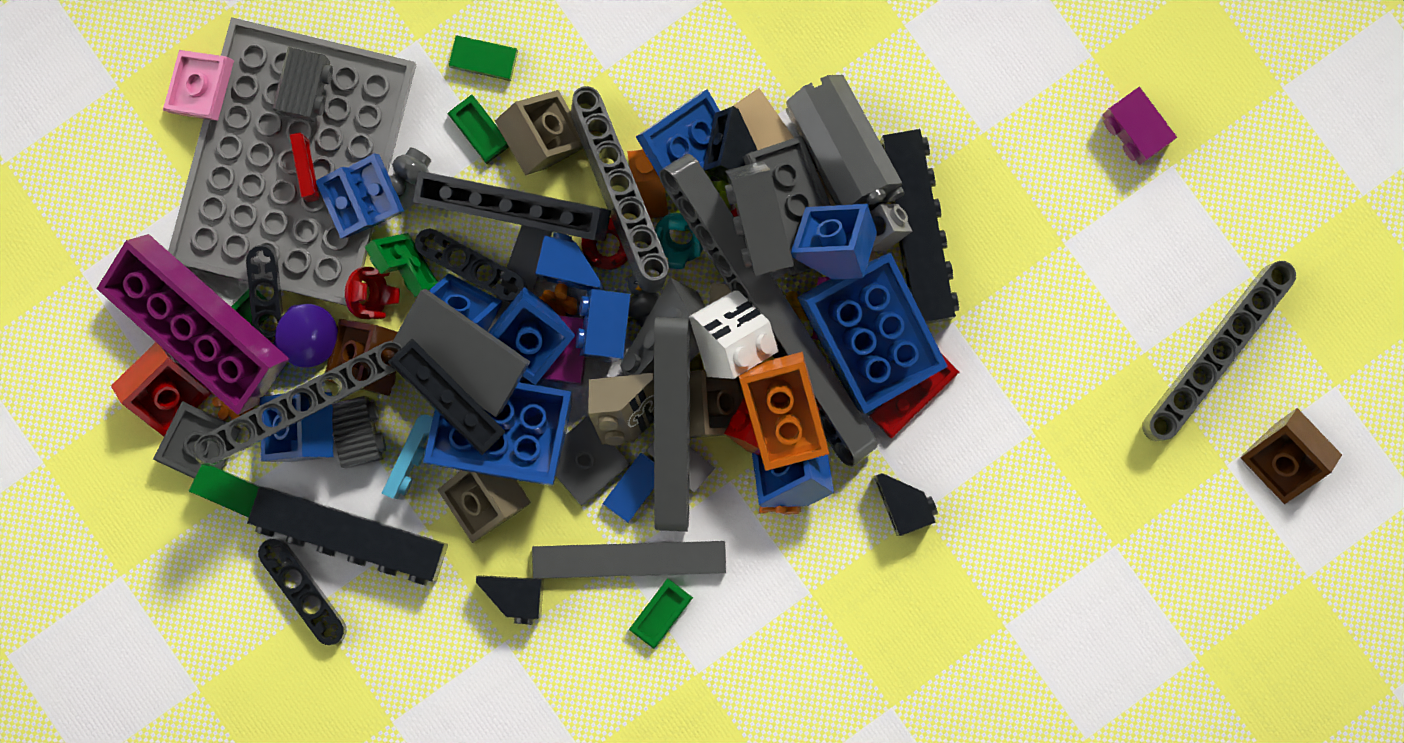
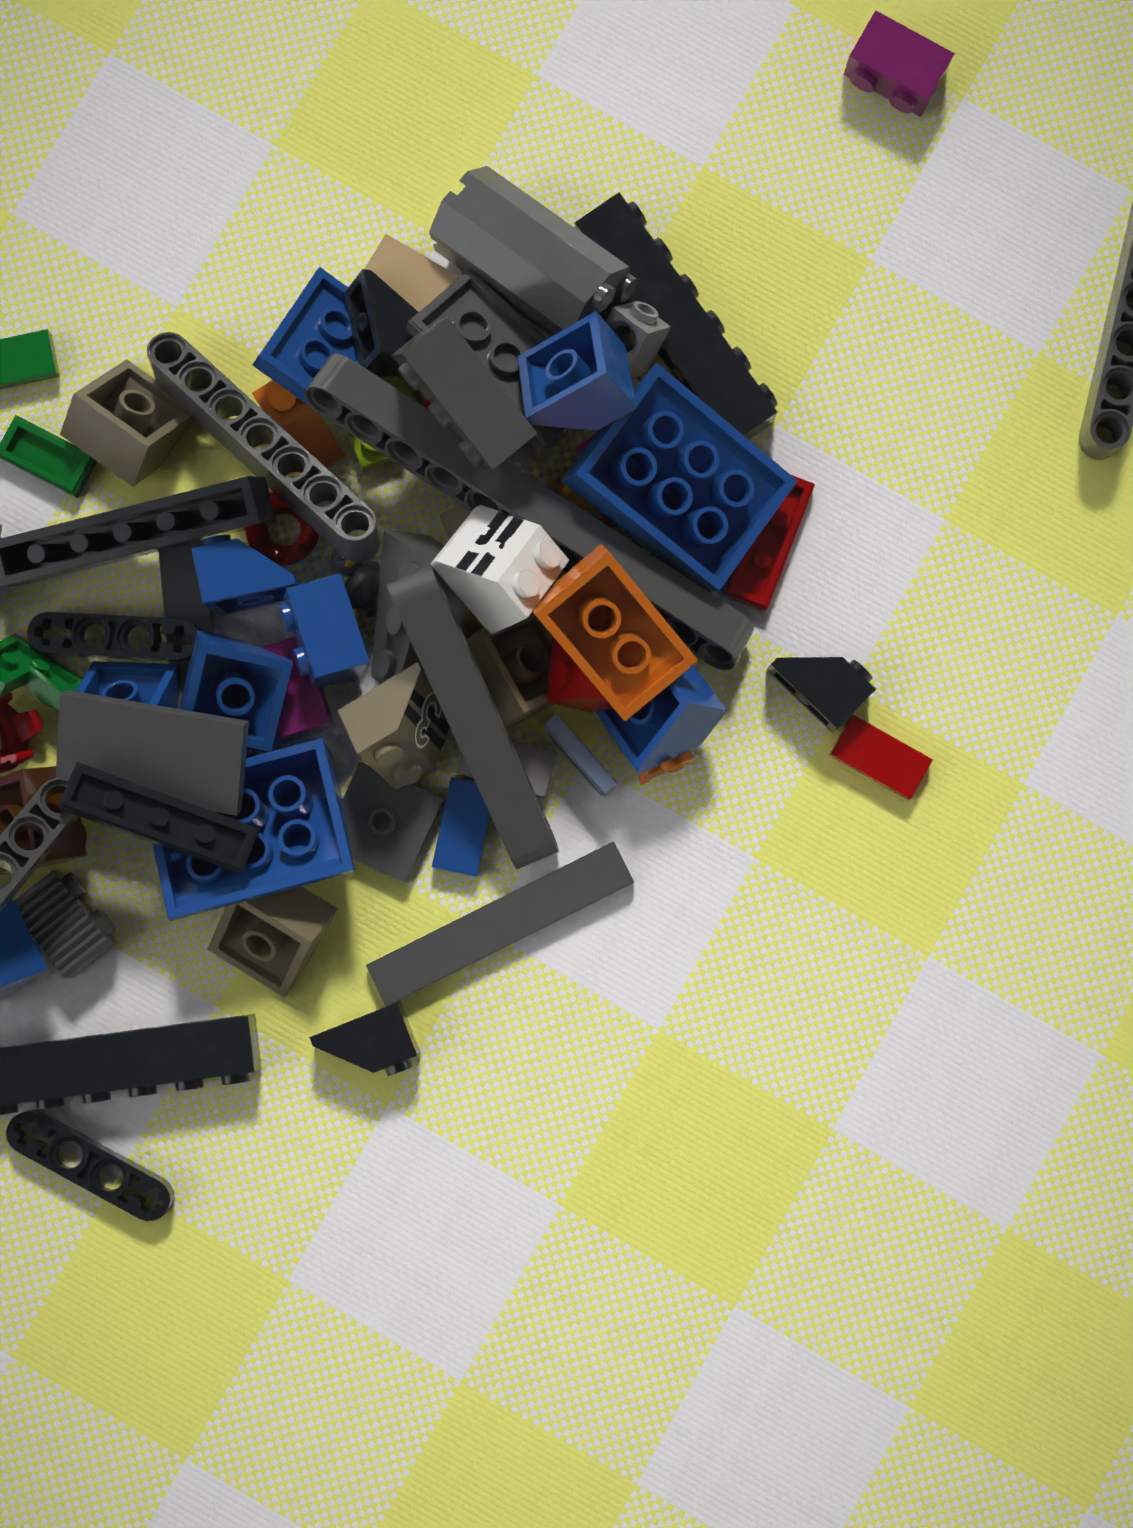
camera: 25 degrees left, 0 degrees up
(411, 455) = (151, 919): medium azure plate -> none
(560, 301) = (255, 629): orange plant -> none
(660, 613) = (573, 974): green tile -> none
(677, 253) = (380, 498): teal piece -> none
(728, 476) = (580, 755): none -> sand blue tile
(920, 566) = (880, 757): none -> red tile

